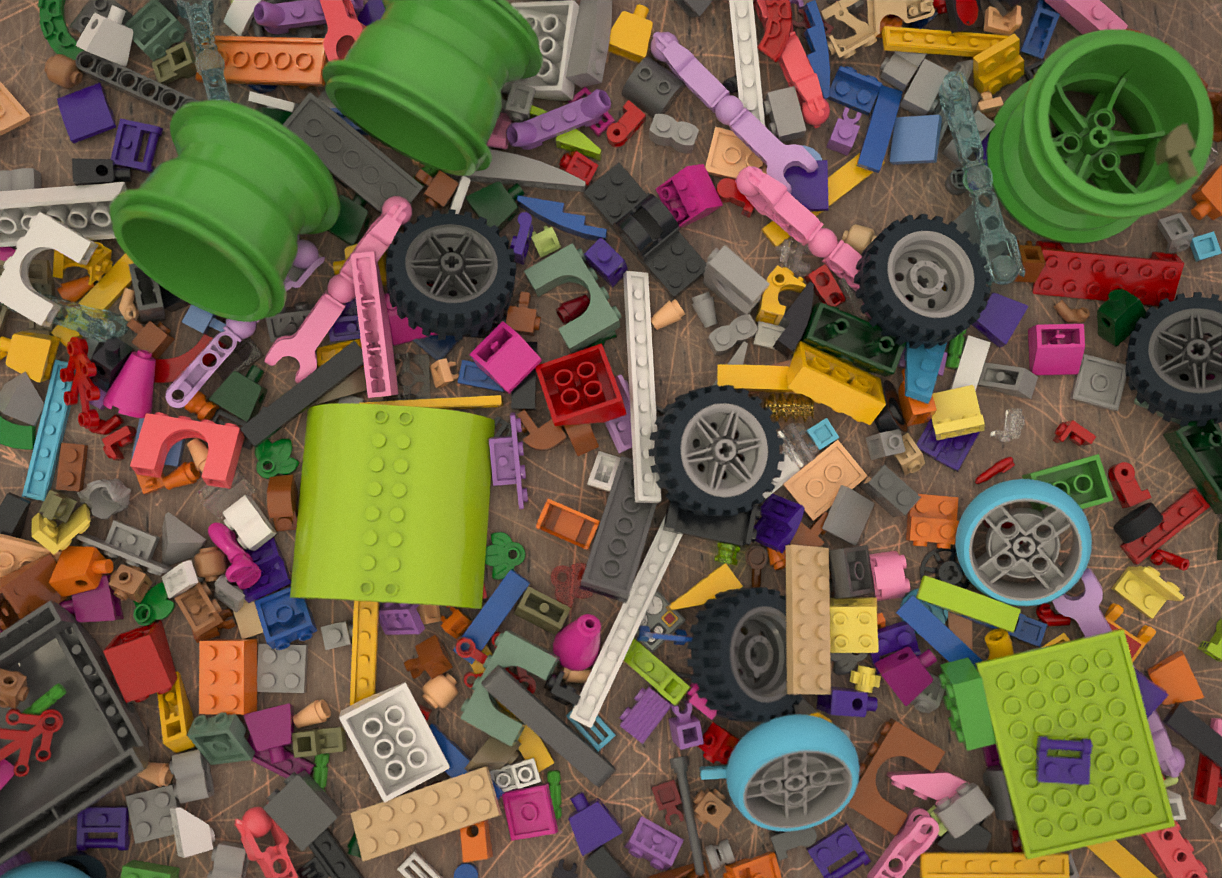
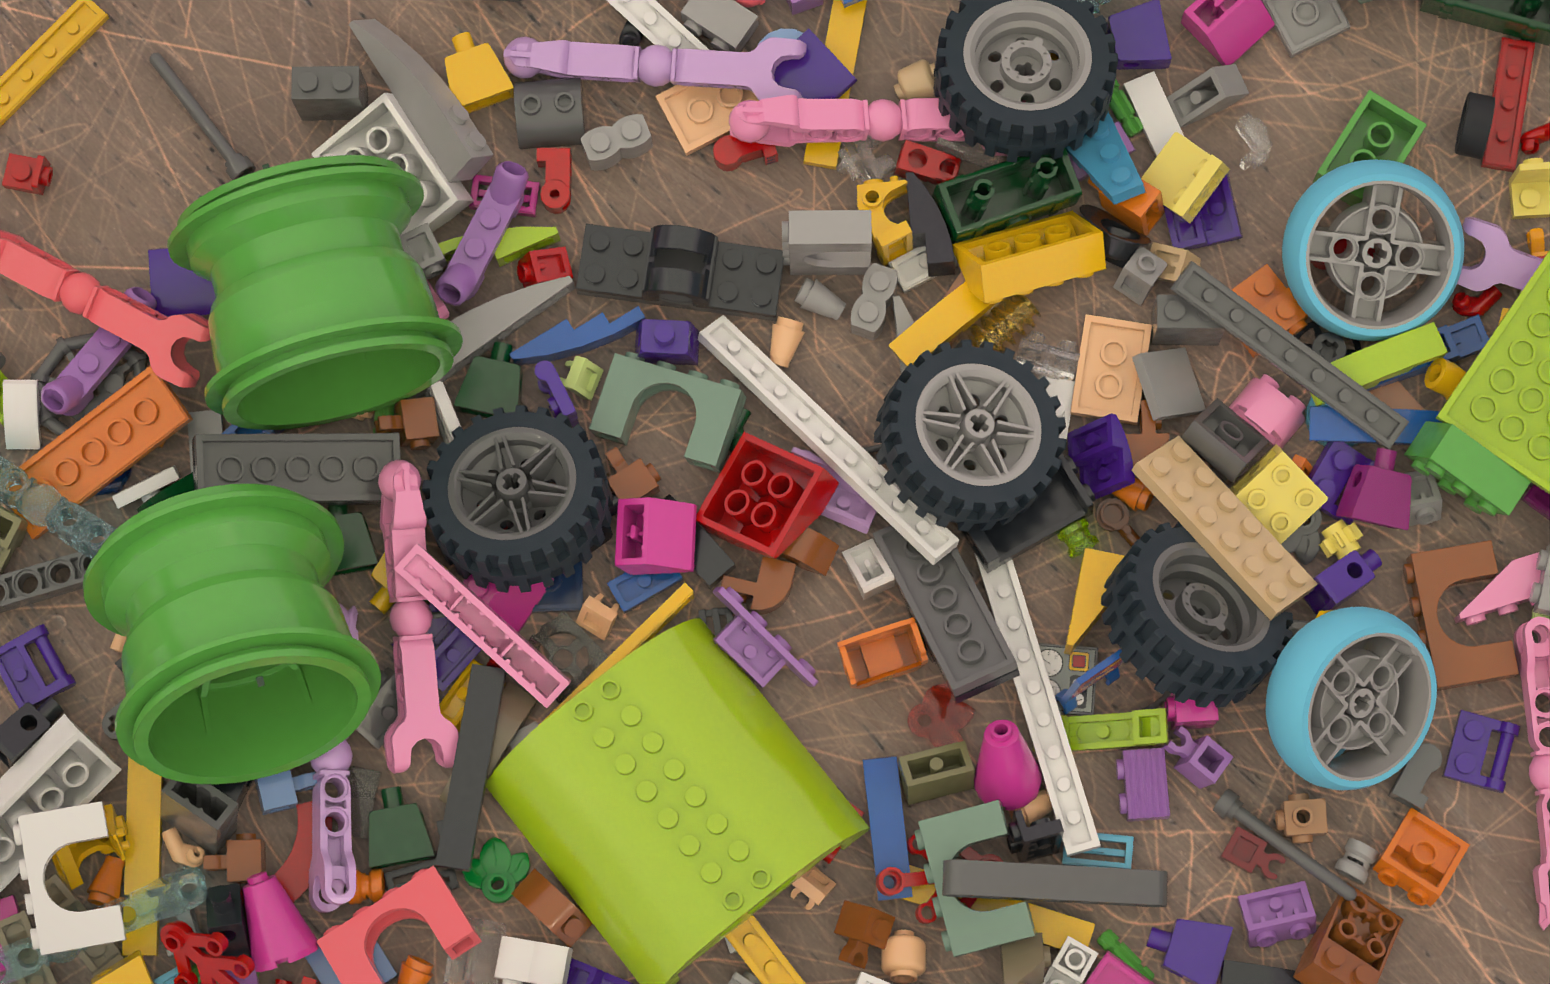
camera: 40 degrees left, 5 degrees down
(198, 452) = (413, 938): light nougat cone -> none
(400, 619) = (791, 915): medium lavender bracket -> none
(456, 623) = (856, 869): orange tile -> none
(499, 555) = (836, 757): green plate -> none
(572, 309) = (676, 427): dark red cone -> none
(689, 195) = (693, 192): dark pink slope -> none
(713, 772) = (1272, 780): medium azure tile -> none
(718, 744) = (1249, 746): red brick -> none
(822, 434) = (1064, 322): medium azure plate -> none
(926, 559) = (1289, 355): none -> dark grey tile
(999, 467) = (1282, 193): red piece -> none
(1077, 433) = (1331, 87): red bracket -> none
(1126, 486) = (1429, 97): red leg -> none

